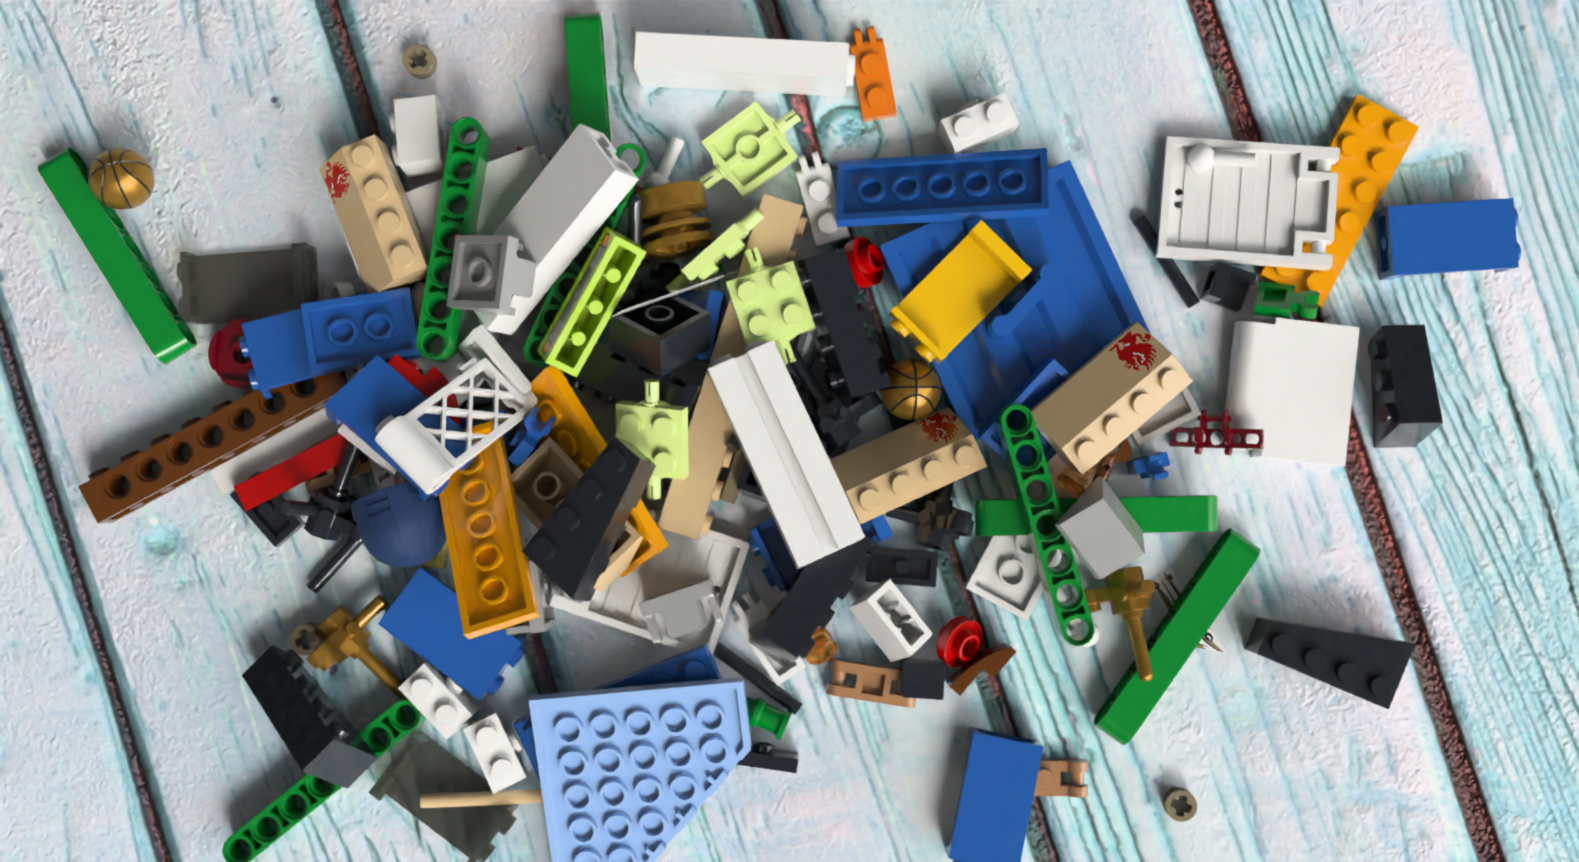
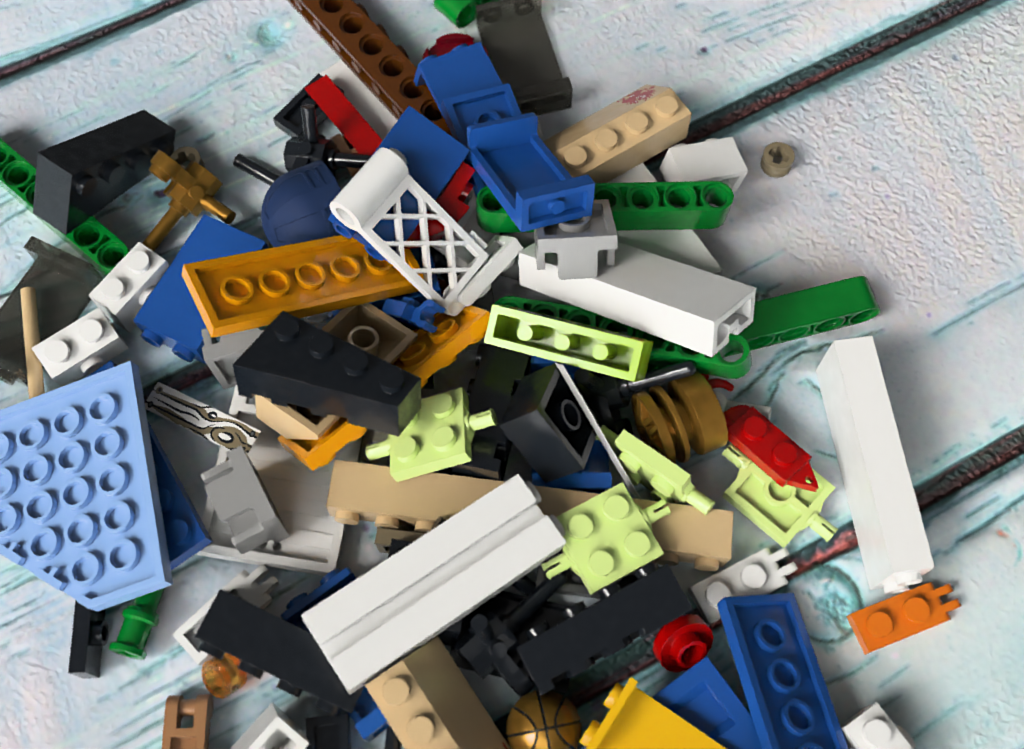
camera: 80 degrees right, 20 degrees down
(417, 305) = (527, 174): none -> blue panel
(588, 644) = (201, 418): none -> sticker
(707, 150) = (767, 445): none -> red plate
(757, 678) = (181, 612): black bar -> none

